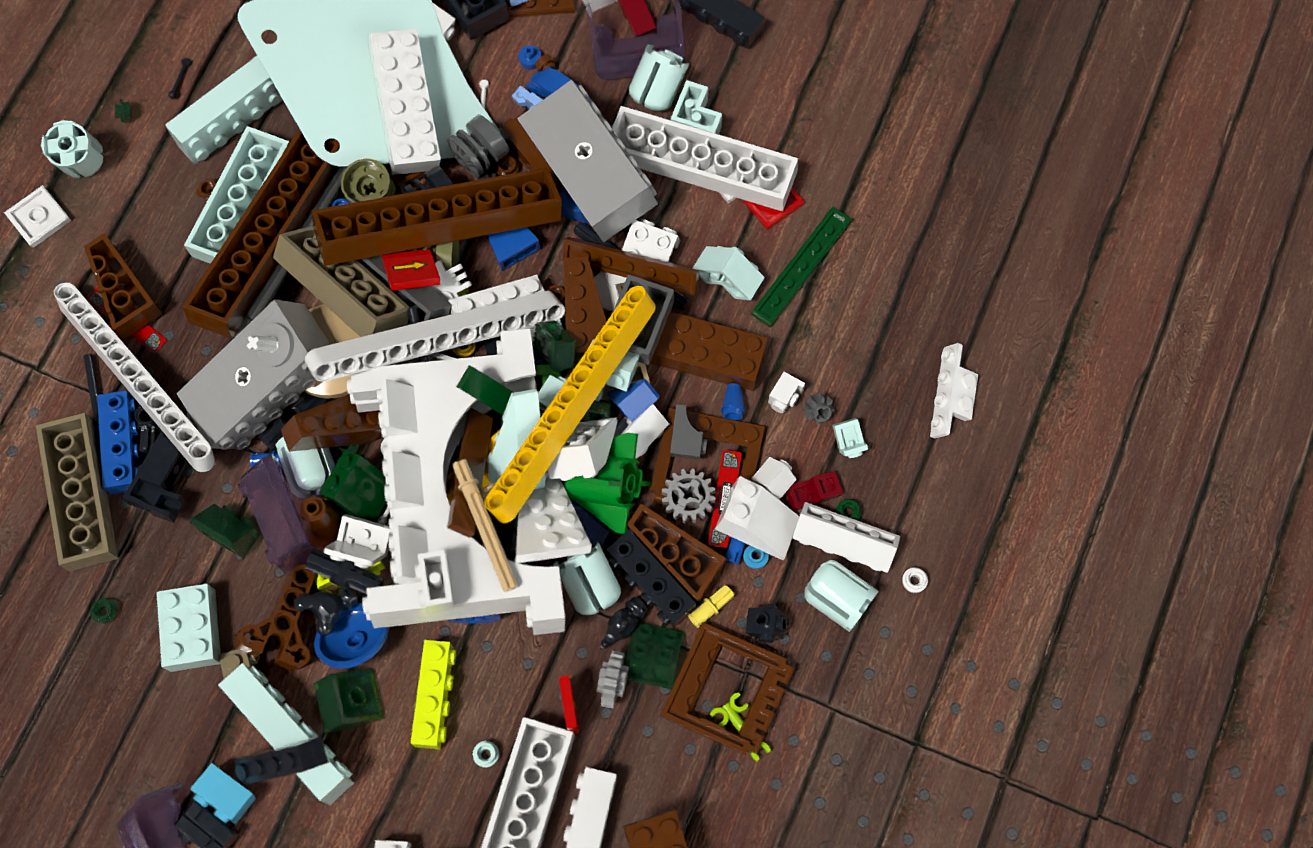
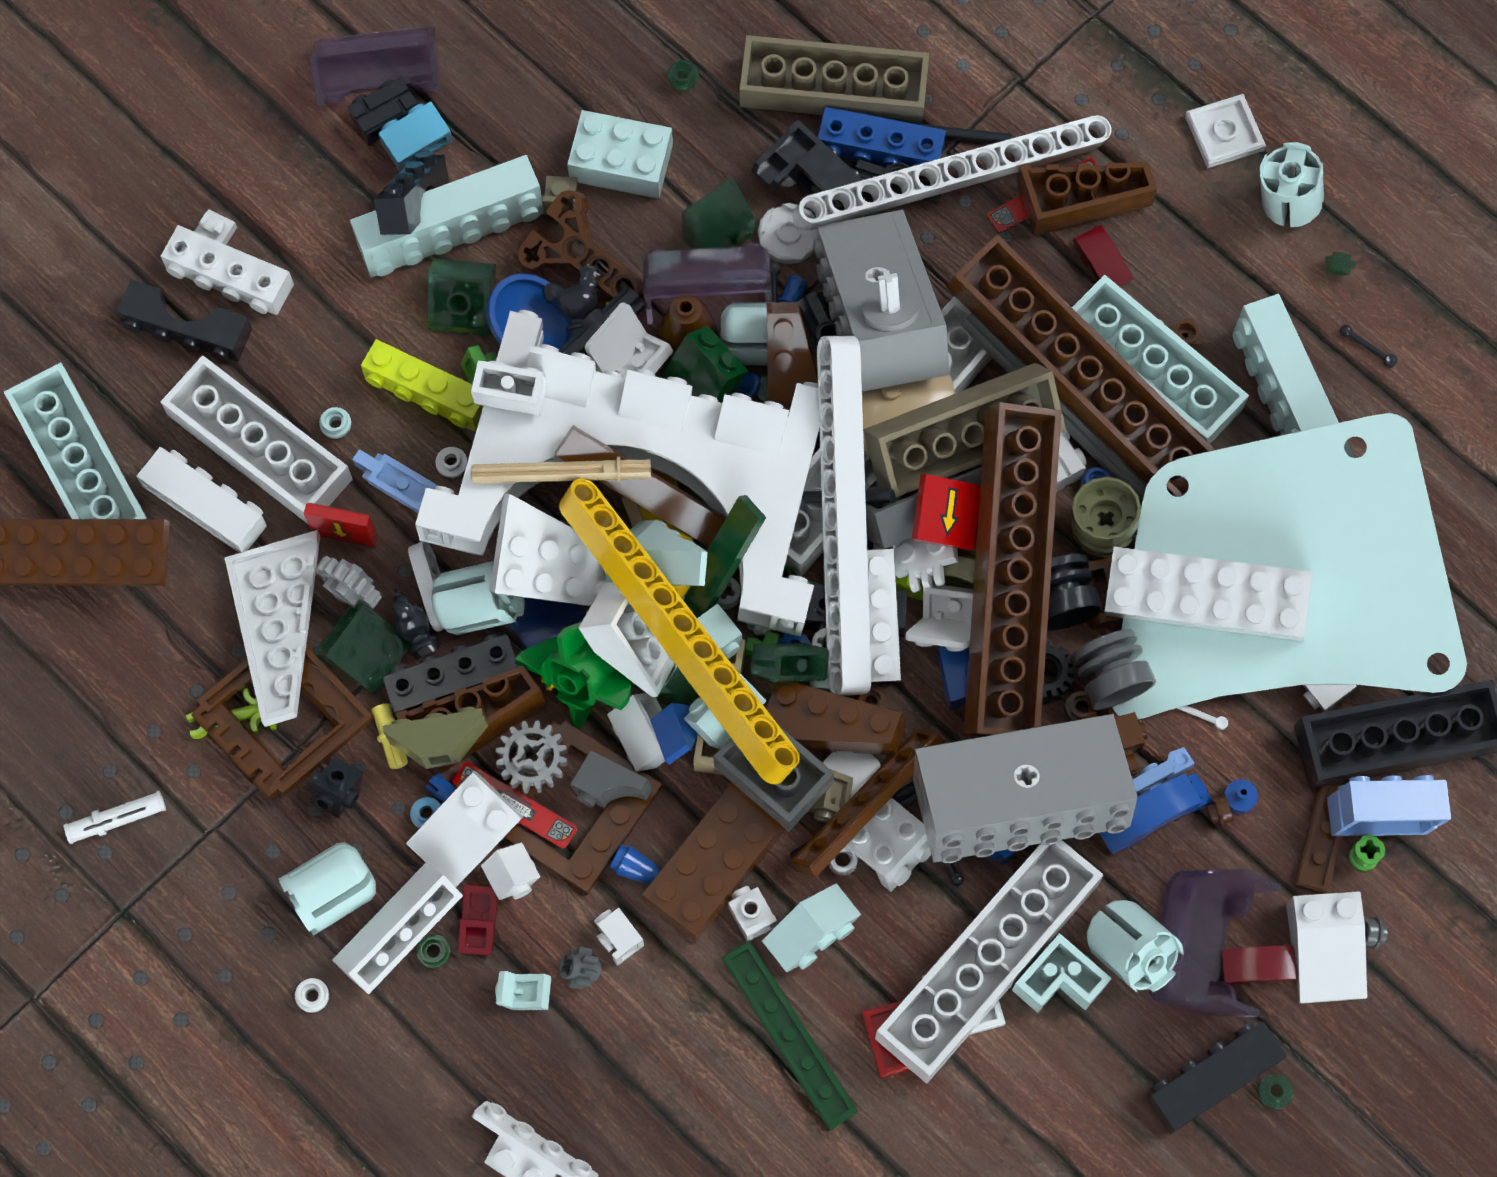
camera: 110 degrees right, 0 degrees up
(165, 261) = (1102, 256): none -> dark red slope
(217, 485) = (782, 238): none -> white tile
(402, 662) = (471, 359): none -> bright green tile
(482, 259) = (945, 618): none -> white bracket
(489, 659) = (455, 470): none -> white plate
(515, 685) = (393, 478): none -> light blue hinge
(585, 626) = (425, 571): none -> white beam
(649, 730) = (273, 608): none -> white wing
(707, 555) = (437, 737): none -> olive slope
(737, 306) = (751, 924): none -> white brick
(857, 782) = (77, 830): none -> white pin

